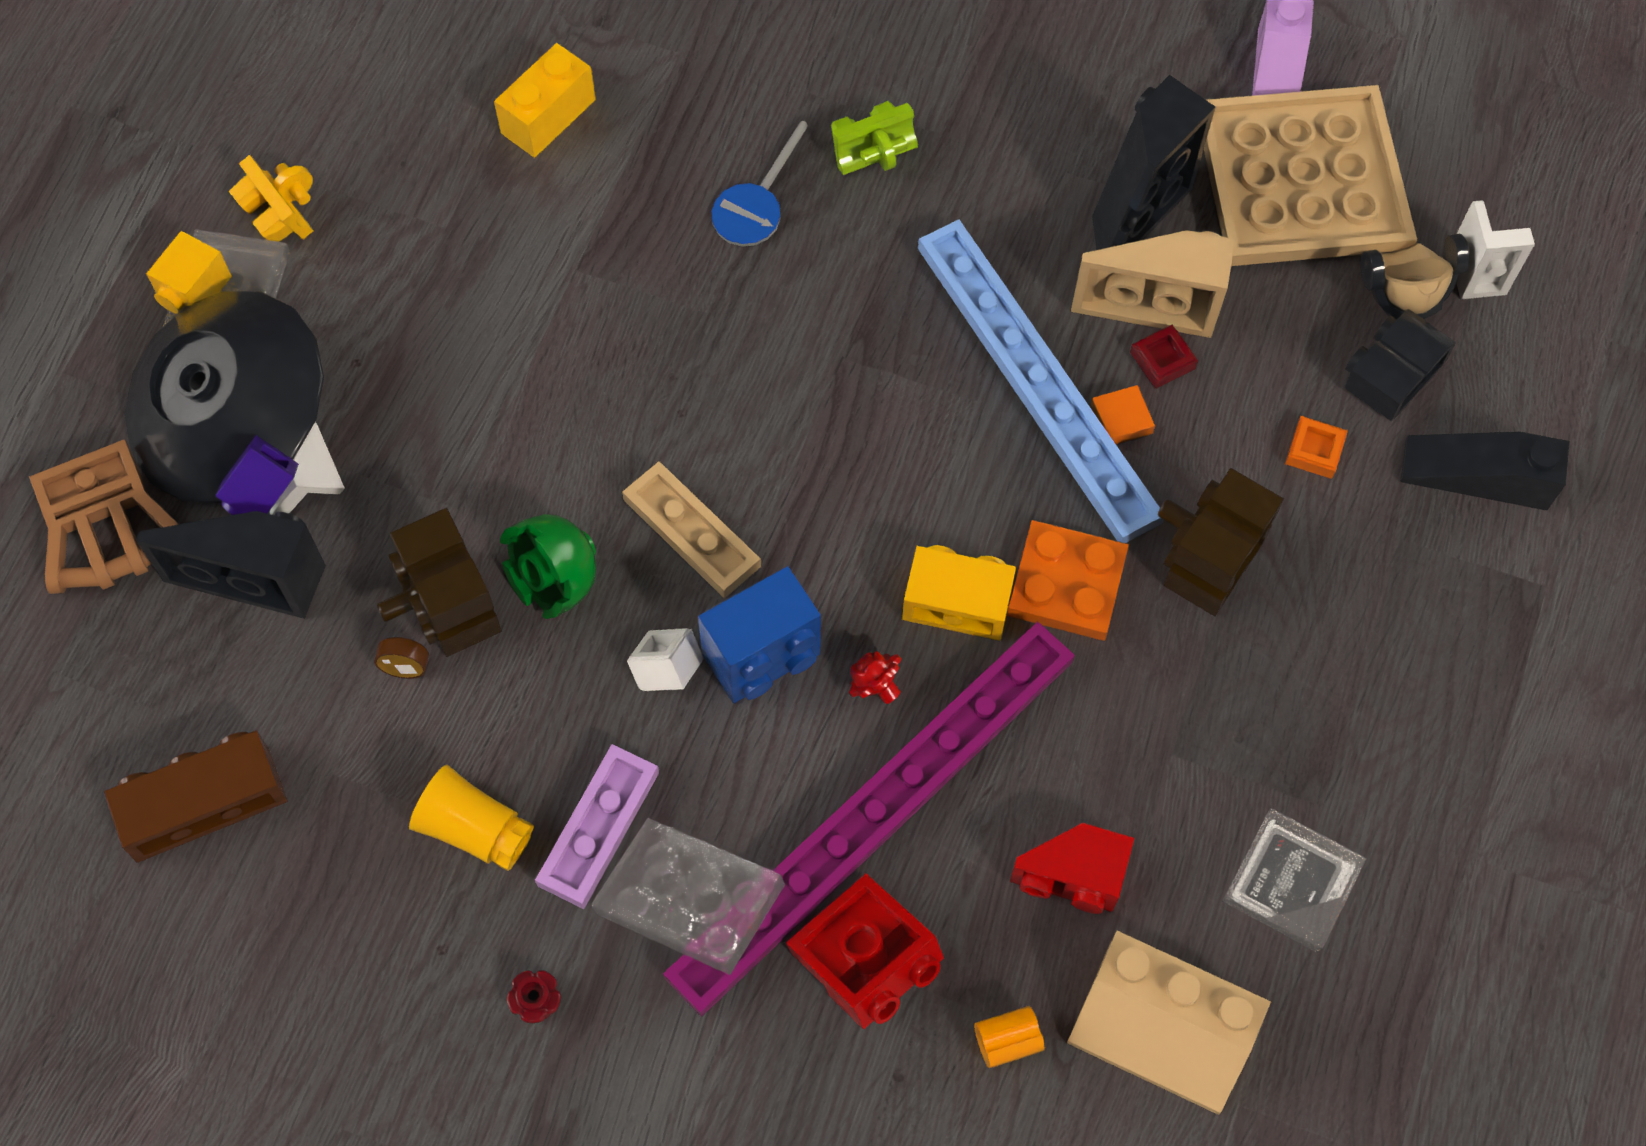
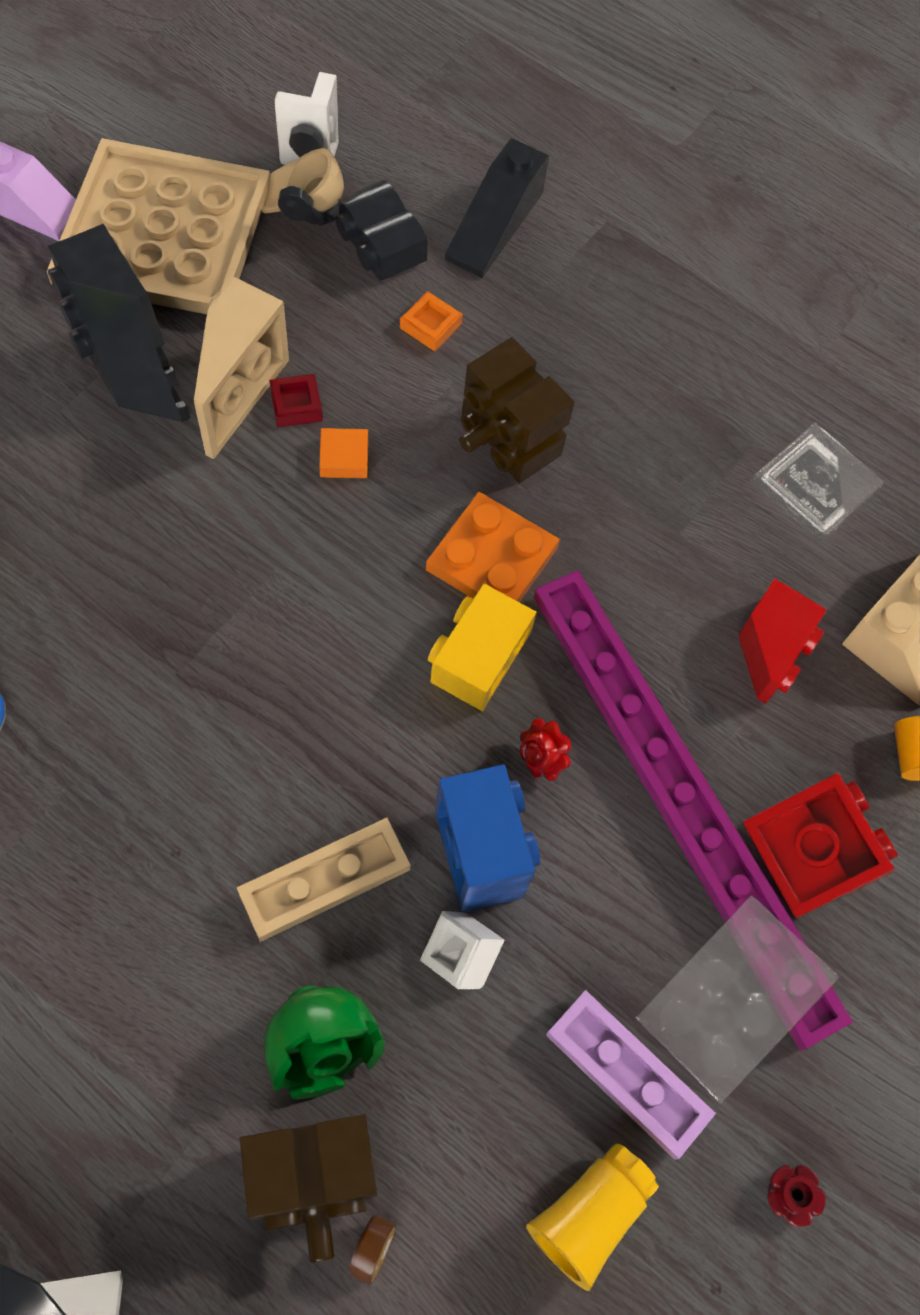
camera: 80 degrees left, 0 degrees up
(1040, 382) = (274, 506): light blue plate -> none

